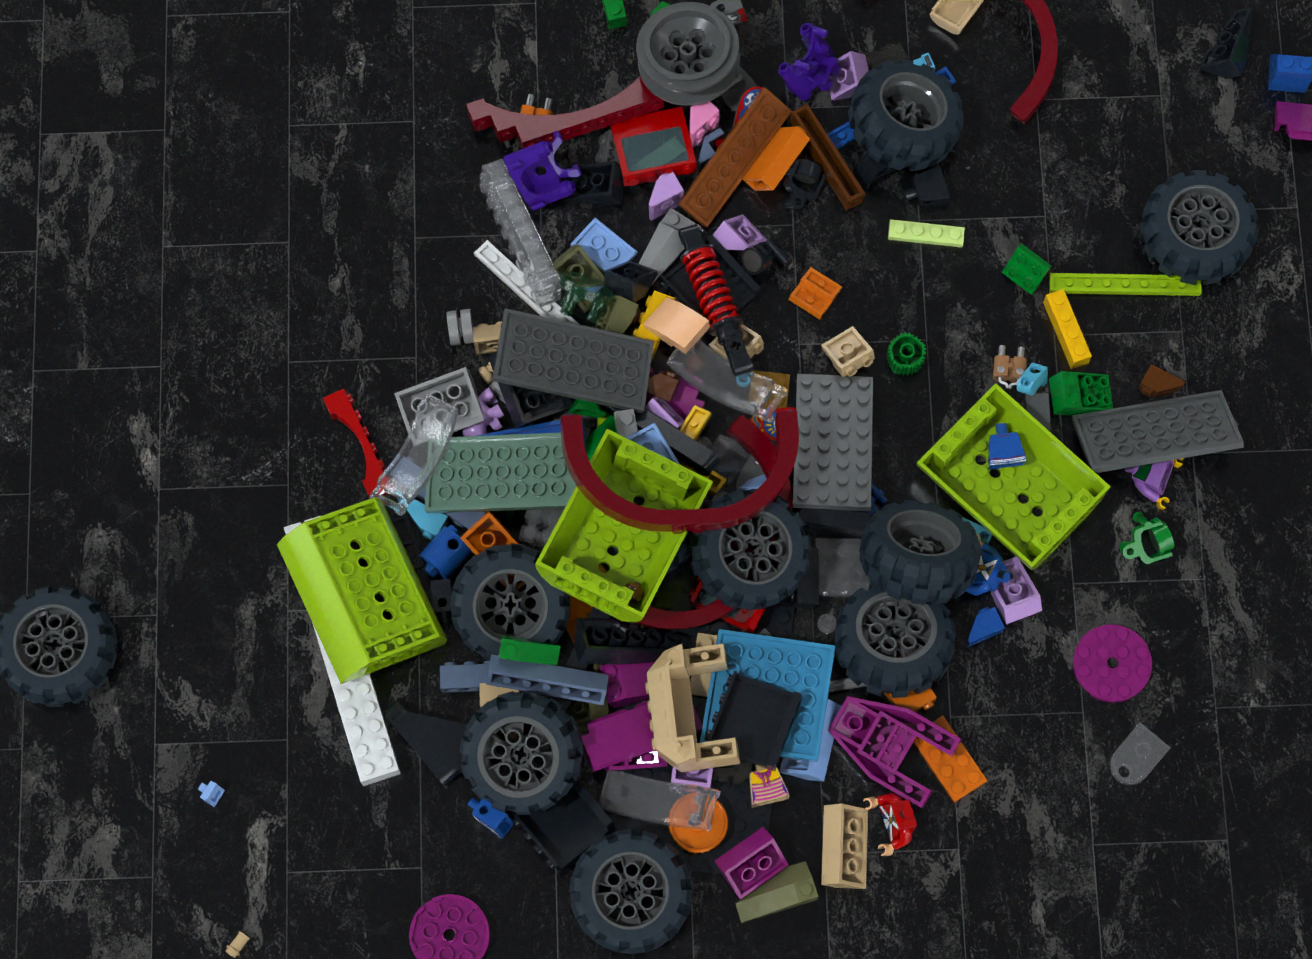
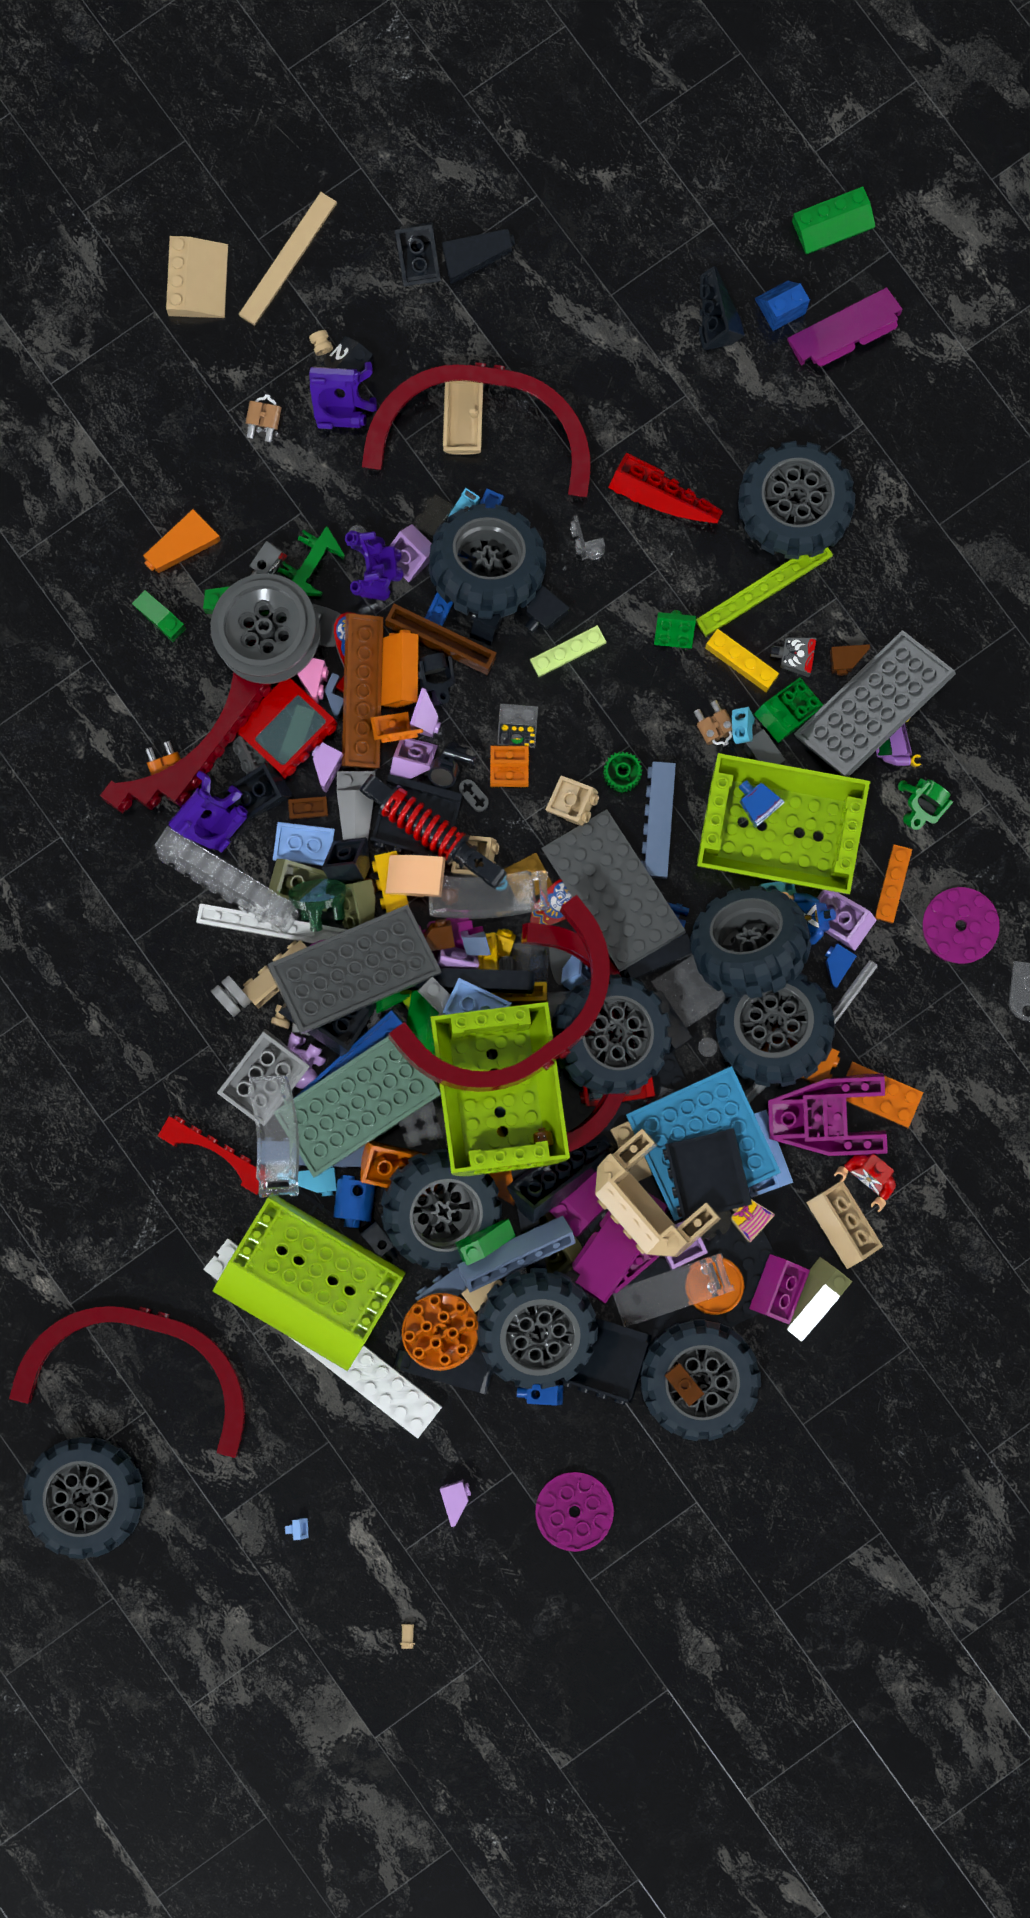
camera: 35 degrees left, 10 degrees up
(121, 504) = (33, 1360): none -> dark red arch
(356, 855) = (455, 1499): none -> lavender slope
(439, 704) = (440, 1331): none -> orange bracket
(613, 880) = (684, 1384): none -> reddish brown plate
(627, 221) = (308, 807): none -> reddish brown plate
(688, 409) = (475, 944): none -> sand blue slope
(714, 428) = (505, 942): none -> yellow bracket
(741, 200) = (393, 727): none -> orange bracket
(765, 297) = (470, 798): none -> dark grey beam
(770, 207) = (425, 716): none -> lavender slope
(777, 25) = (318, 547): none -> green hose
(844, 263) = (517, 725): none -> clear slope
(911, 412) = (659, 819): none -> sand blue brick
(981, 657) = (853, 990): none -> light grey axle
(999, 161) = (590, 549): none -> clear bracket
(1076, 591) = (893, 883): none -> orange plate
(1083, 148) = (651, 488): none -> red wedge
(1116, 353) = (796, 655): none -> torso

